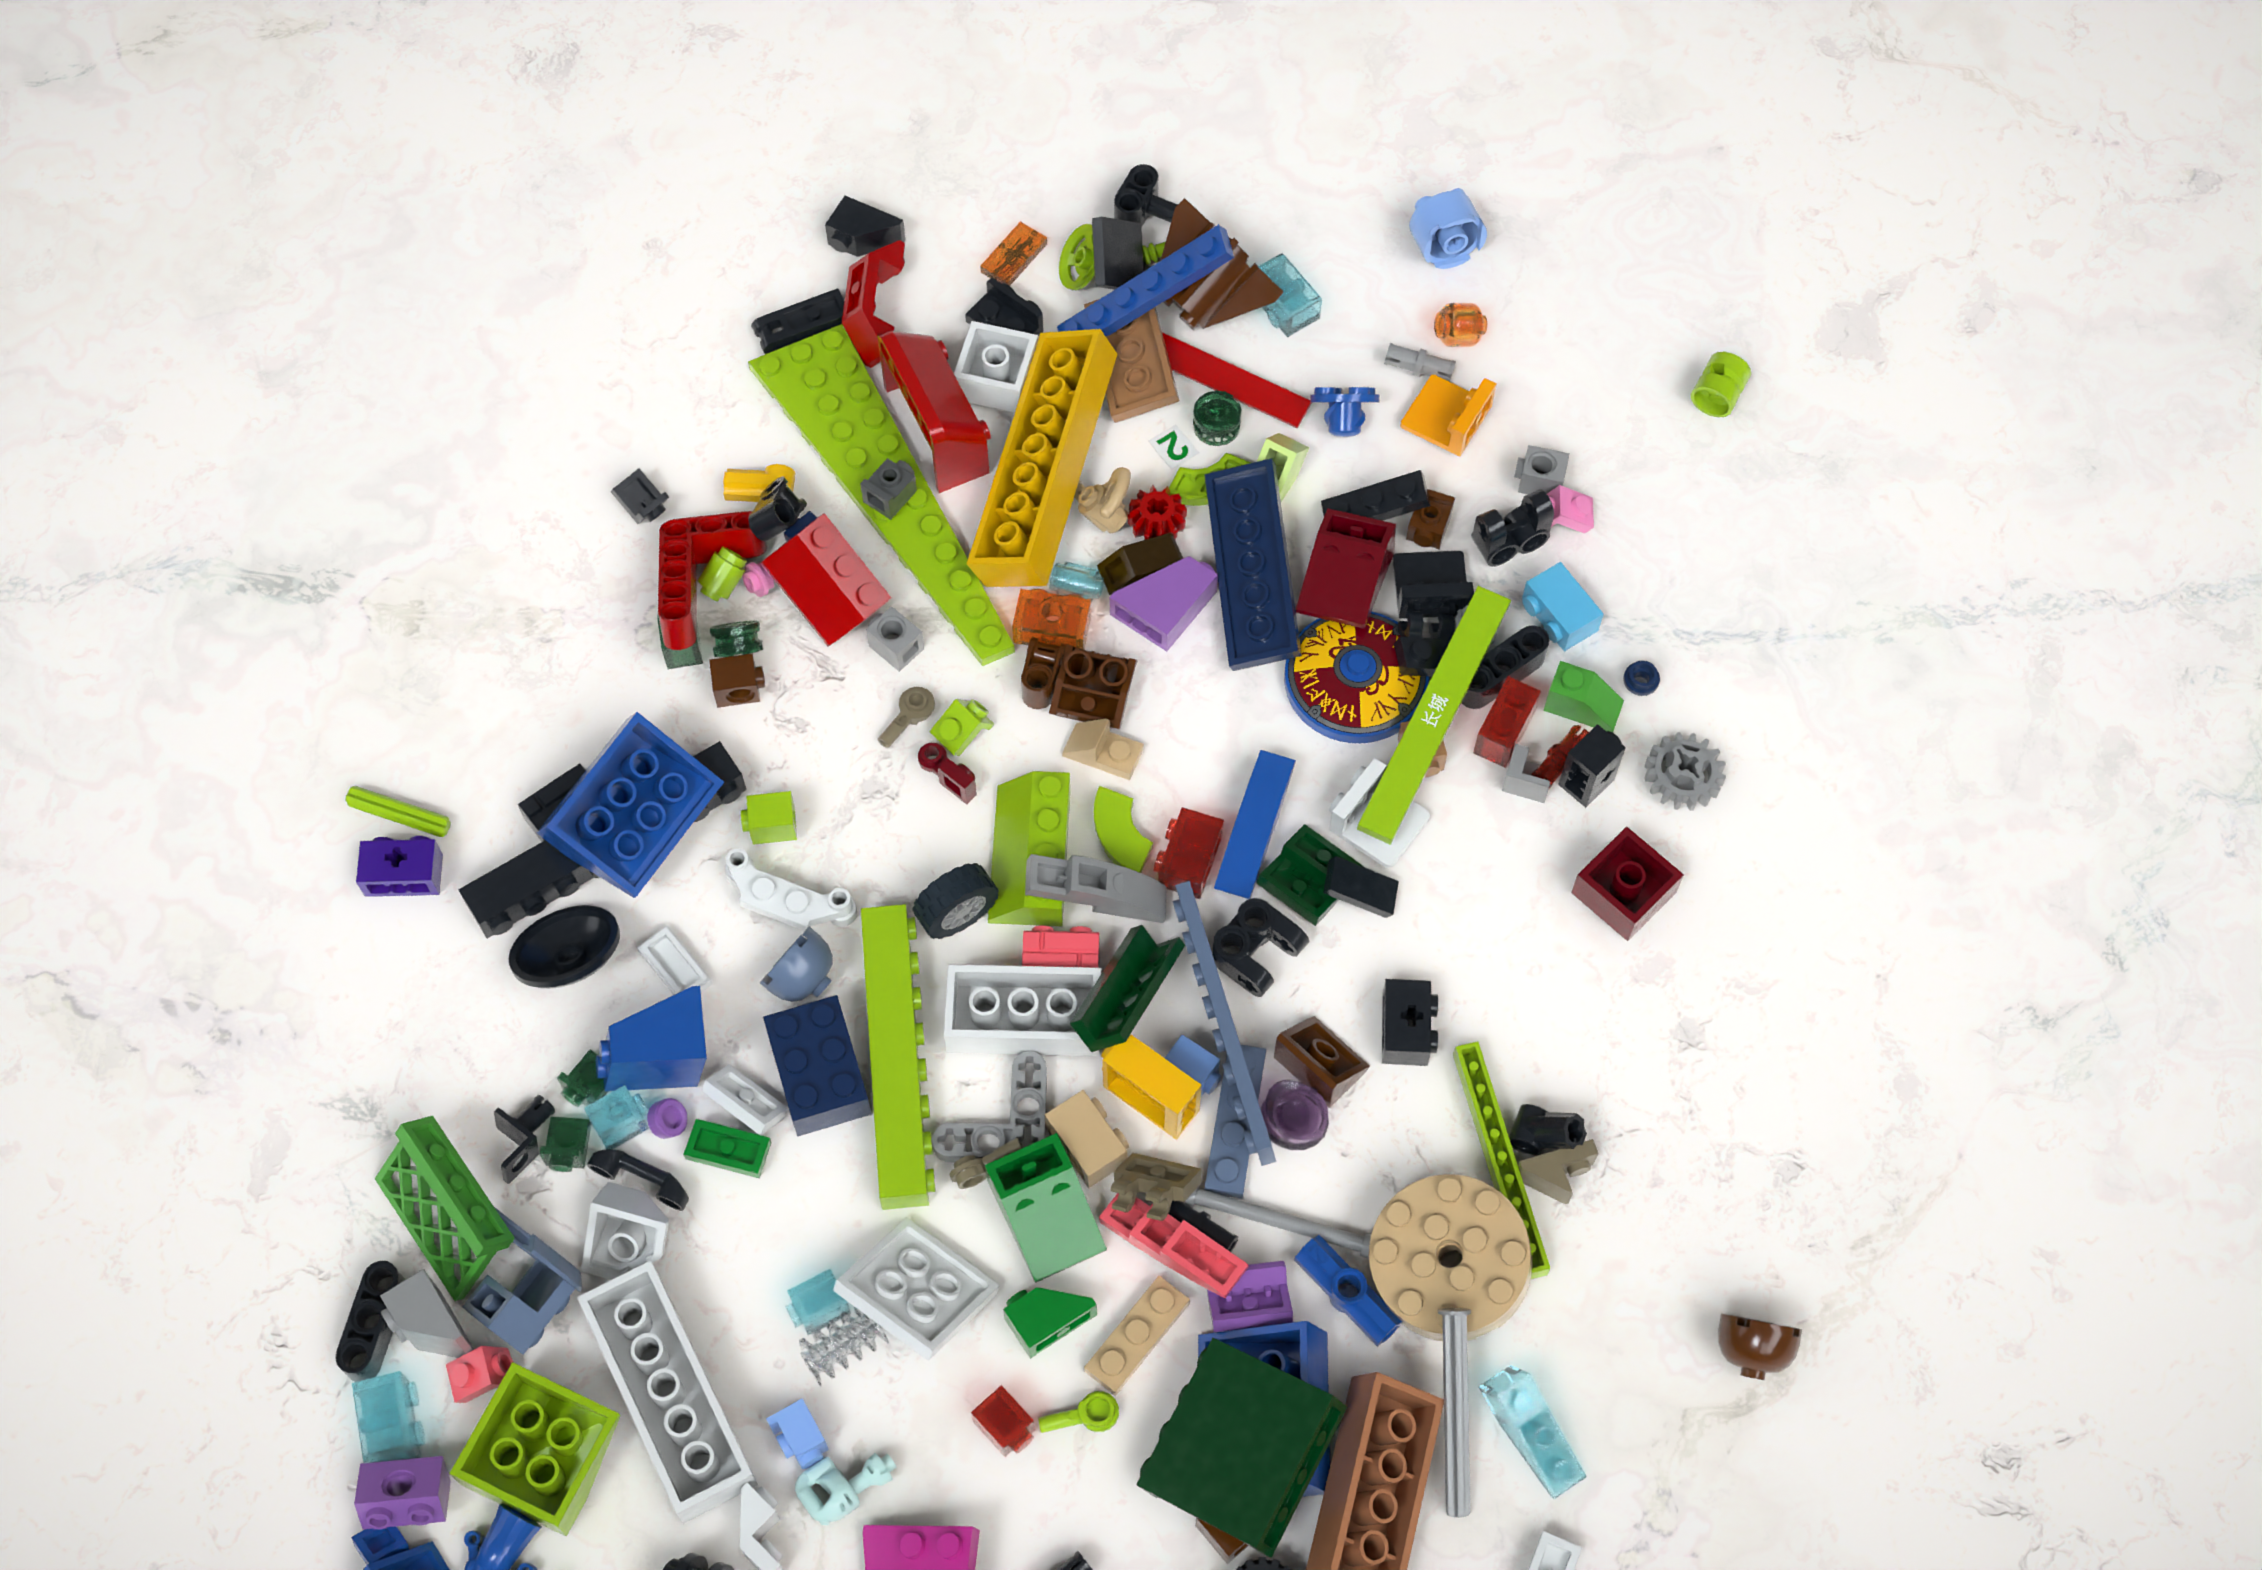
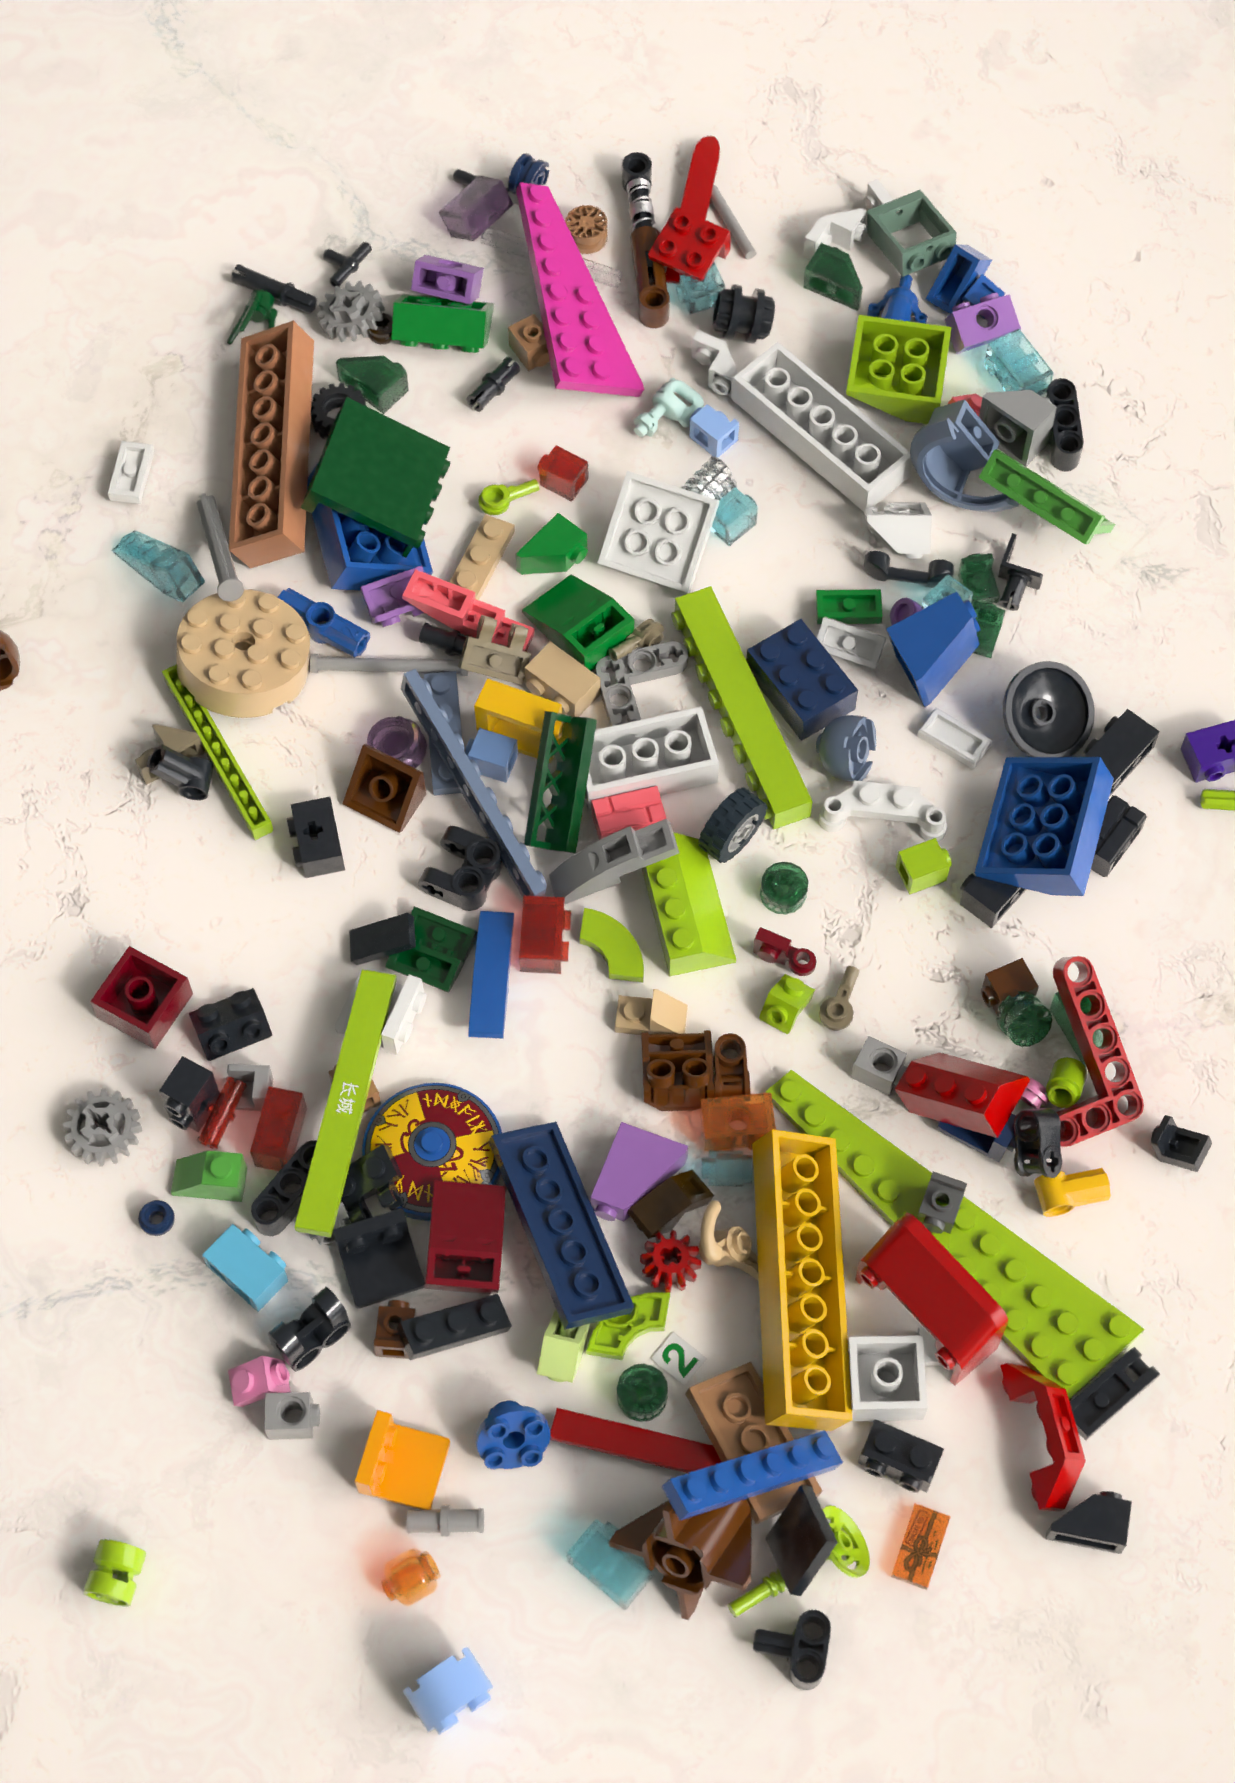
camera: 165 degrees right, 0 degrees up
(922, 841) = (784, 887): none -> clear green wheel
(1538, 848) = (230, 1024): none -> black bracket

